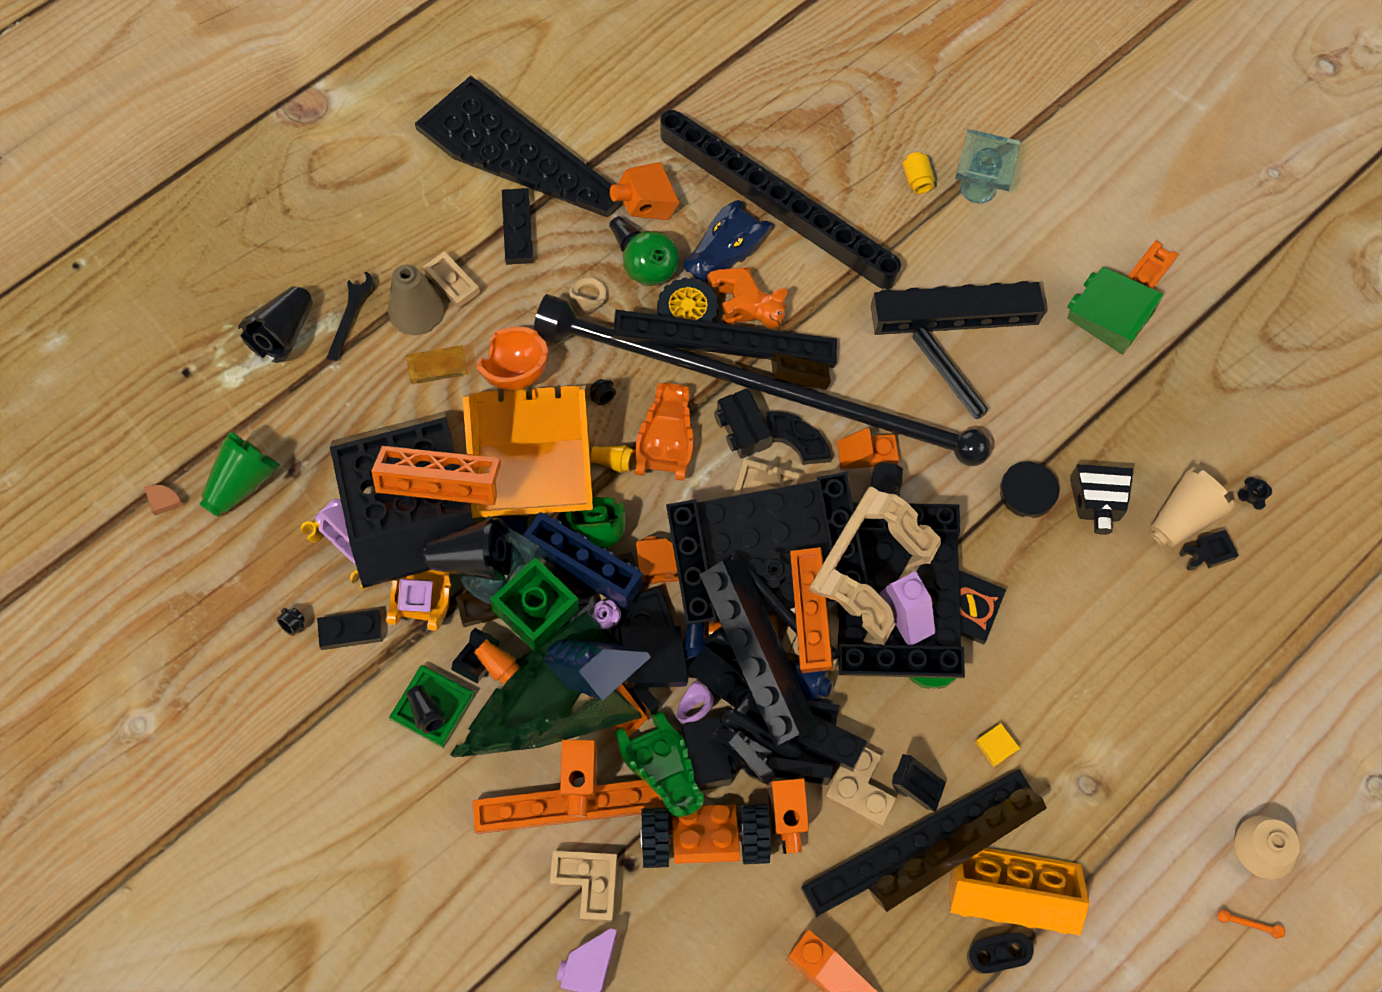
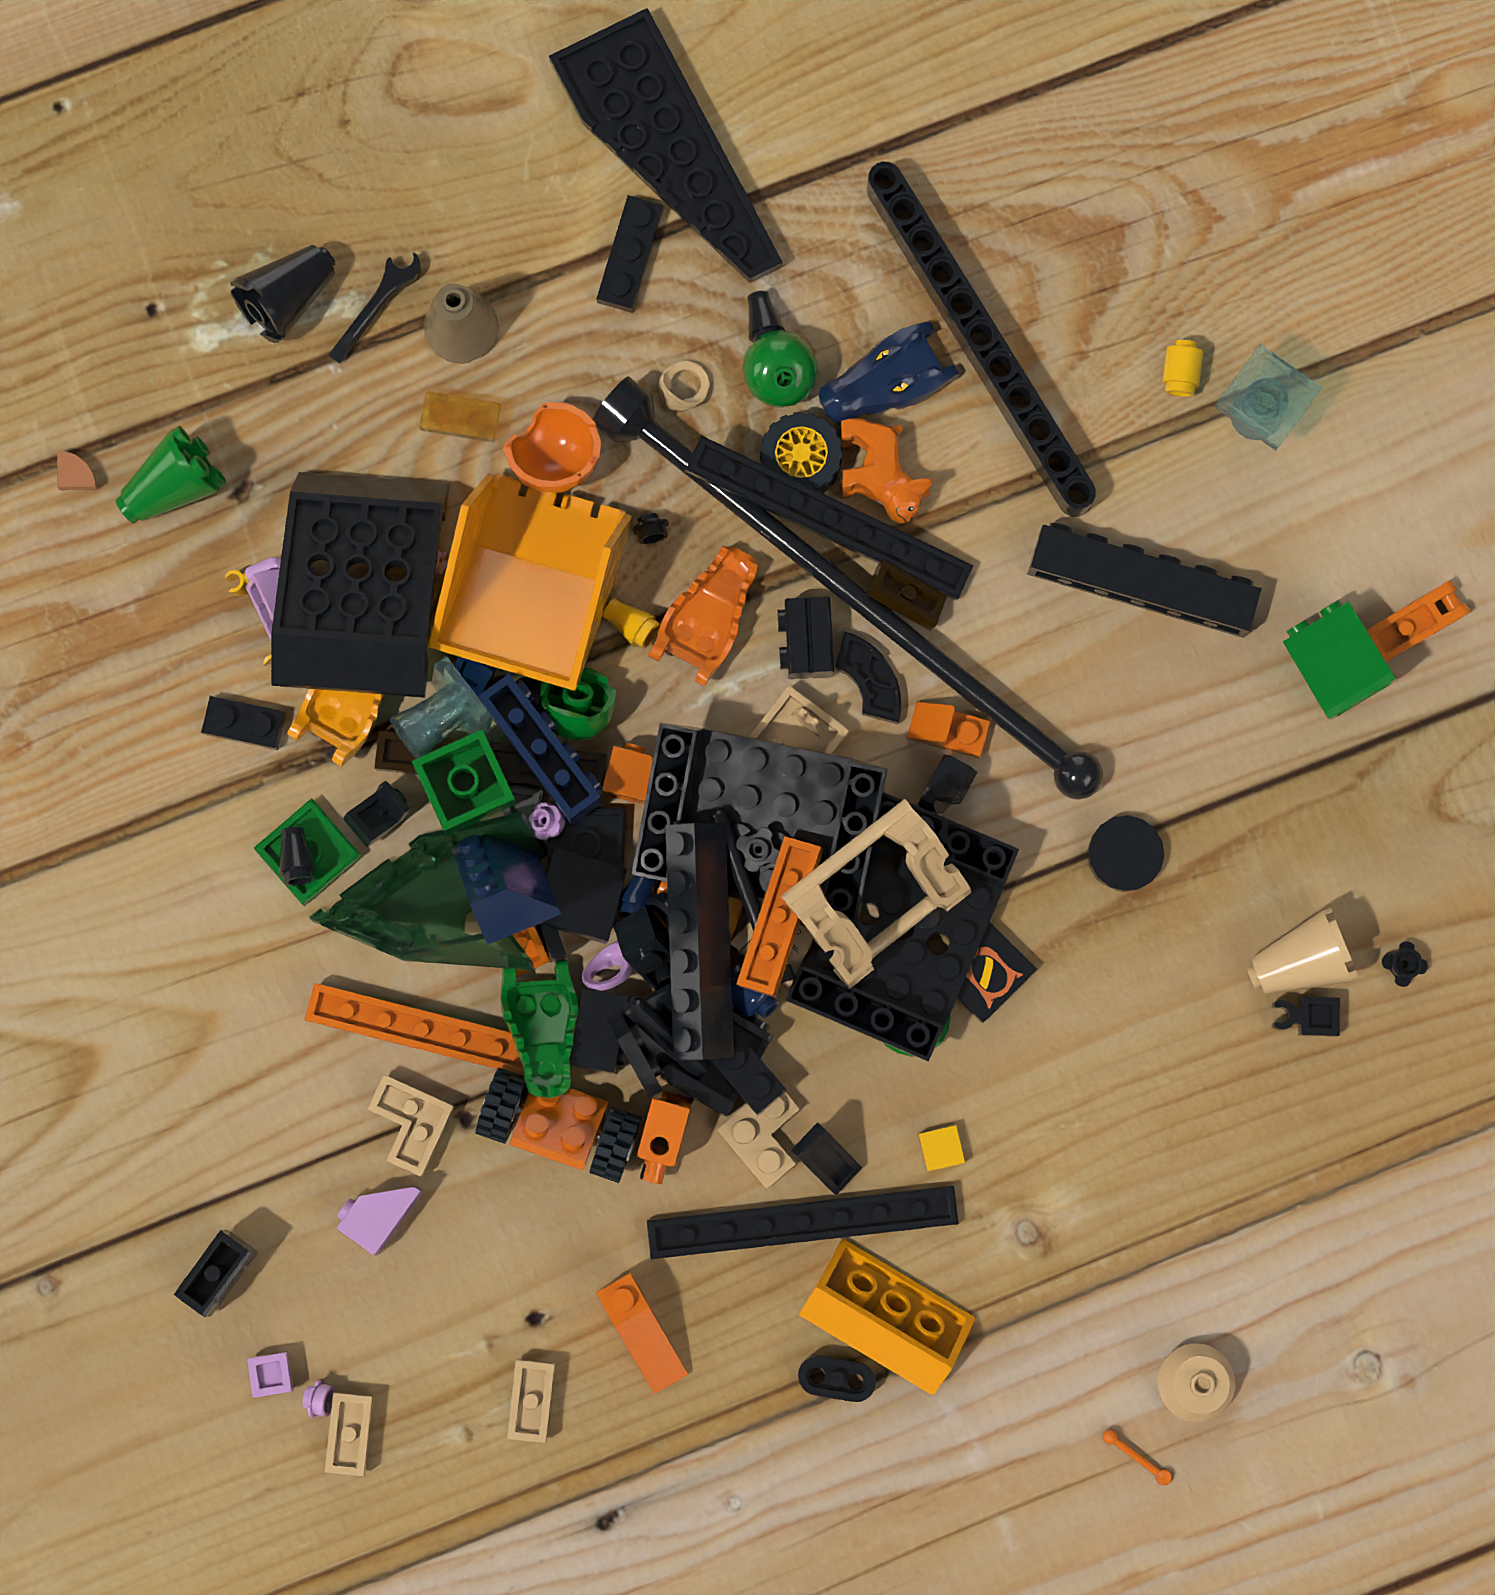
camera: 20 degrees right, 15 degrees up
(291, 621) = (179, 688): black plate -> none
(414, 595) = (330, 715): lavender plate -> none
(433, 480) = (398, 597): orange fence -> none
(451, 279) = (518, 303): tan plate -> none
(472, 551) = (411, 699): black cone -> none
(497, 661) = (397, 832): orange cone -> none
(577, 761) = (449, 990): orange torso -> none
(646, 192) = (809, 271): orange torso -> none
(910, 608) = (900, 956): lavender slope -> none
(950, 373) = (1097, 663): black axle -> none
(956, 848) = (837, 1248): dark brown plate -> none
(1101, 494) = (1209, 896): black torso -> none

